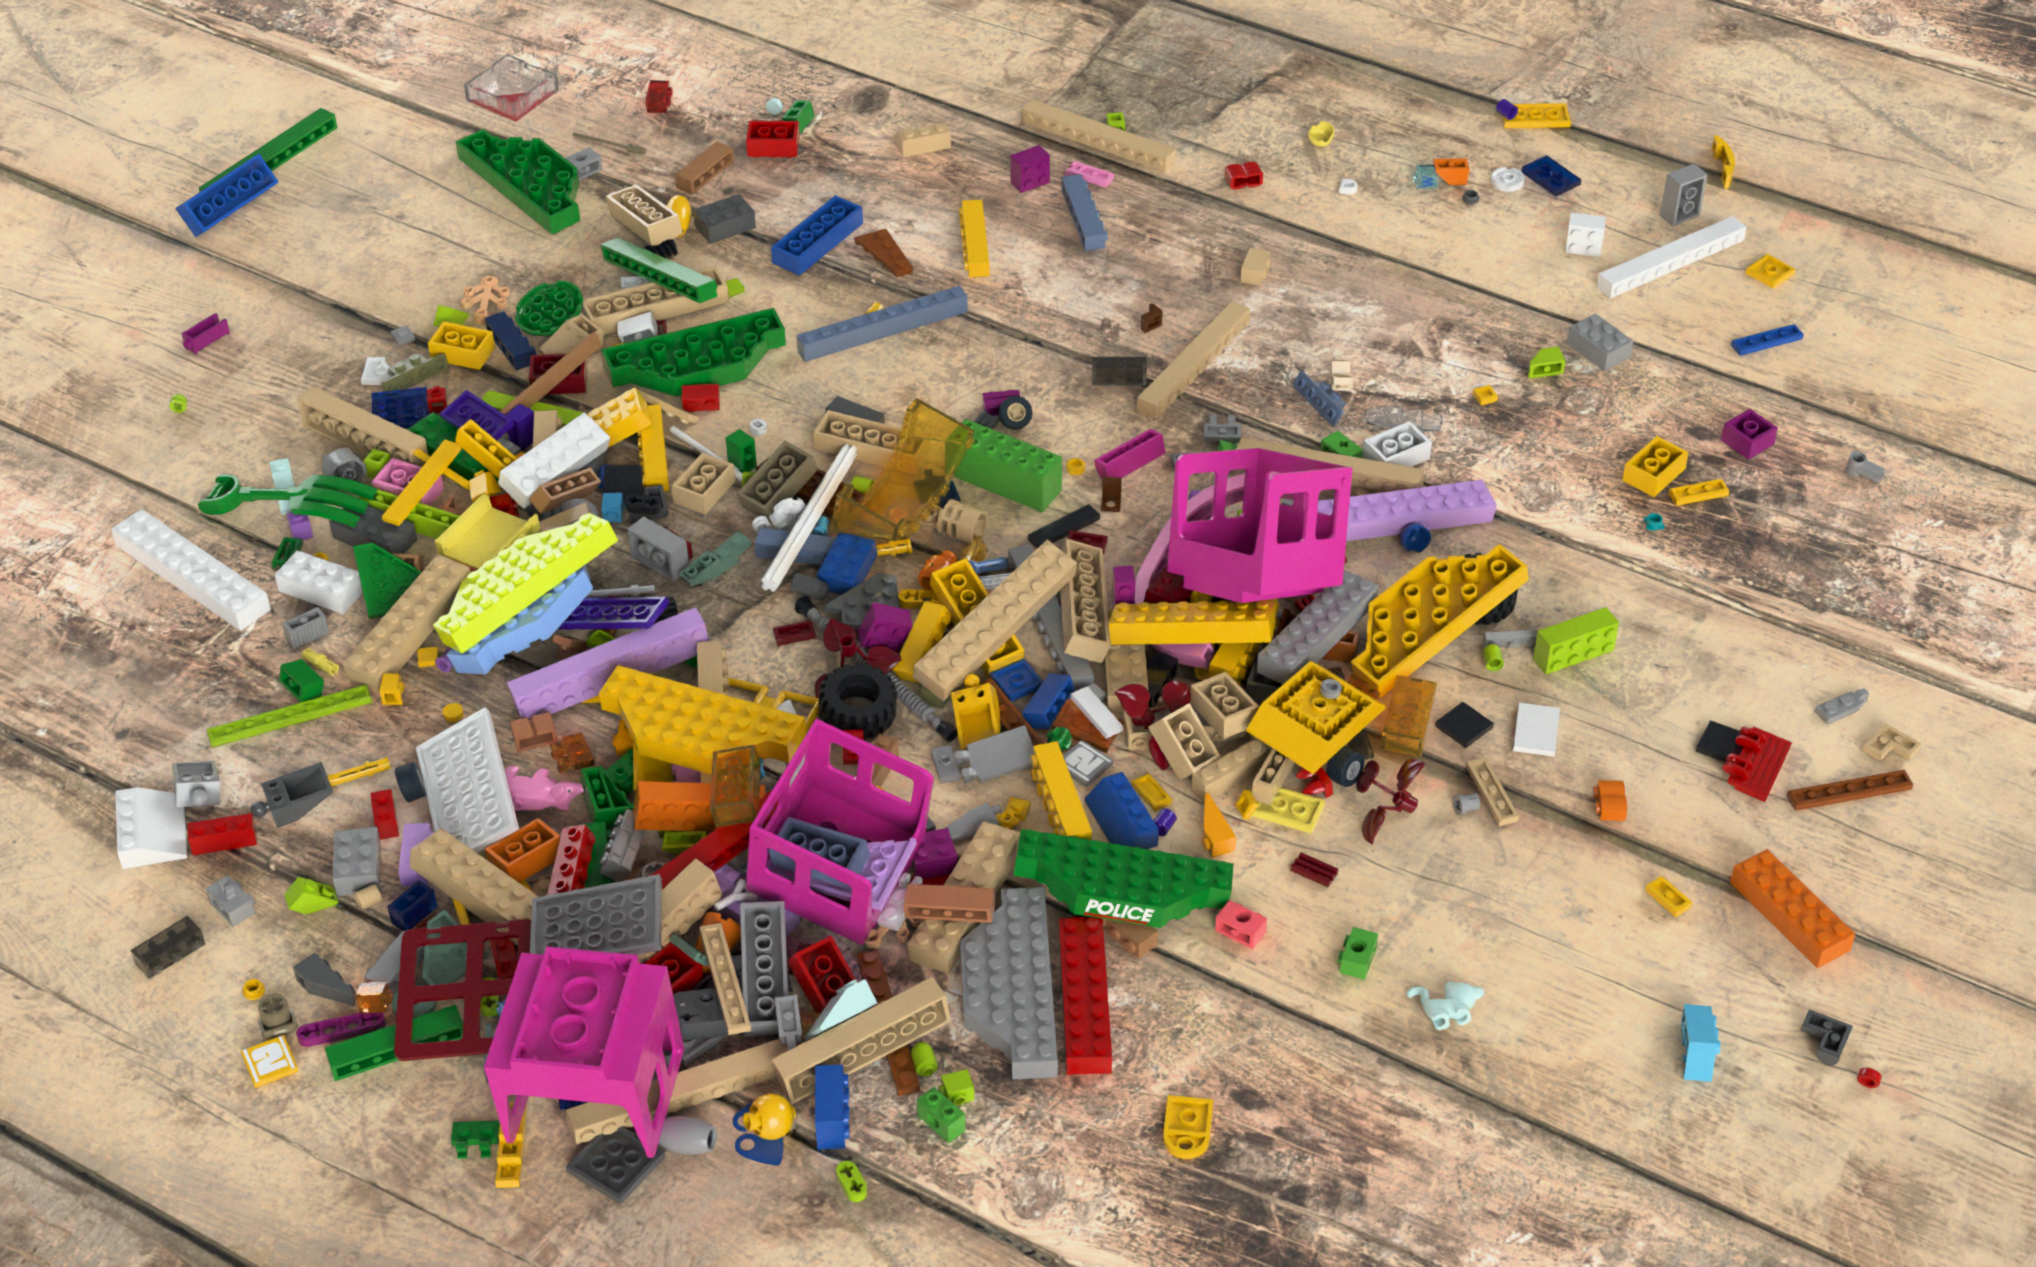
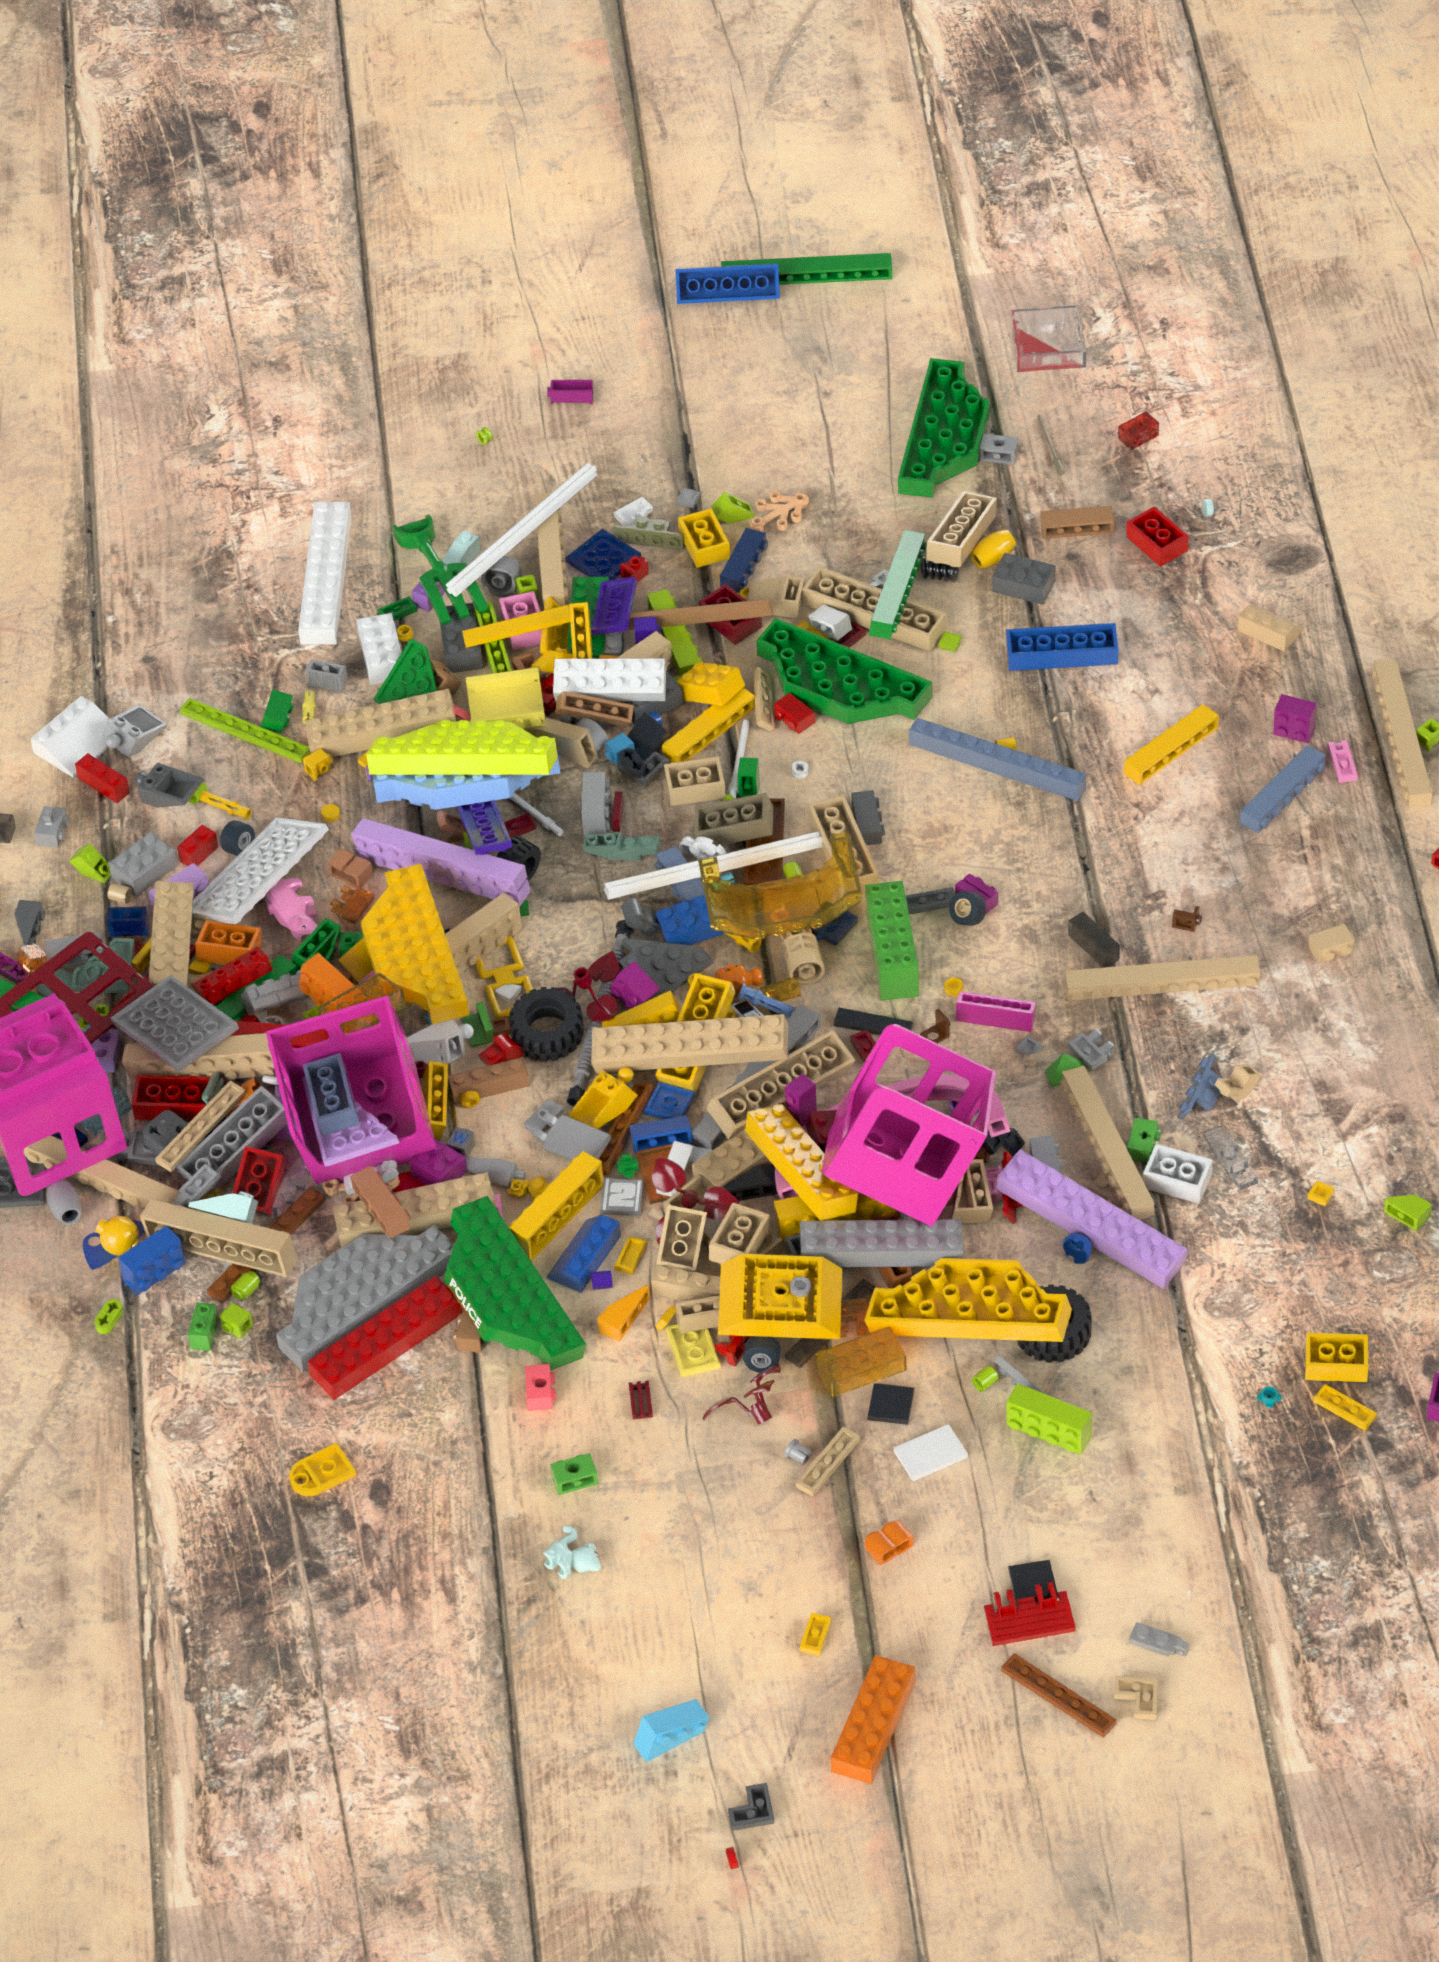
camera: 55 degrees right, 5 degrees up
(329, 422) = (521, 529): none -> white axle
(548, 307) = (796, 554): green brick -> none
(794, 633) = (592, 944): dark red tile -> none
(800, 111) = (1210, 531): green hinge -> none
(885, 250) = (1097, 700): dark orange wing -> none

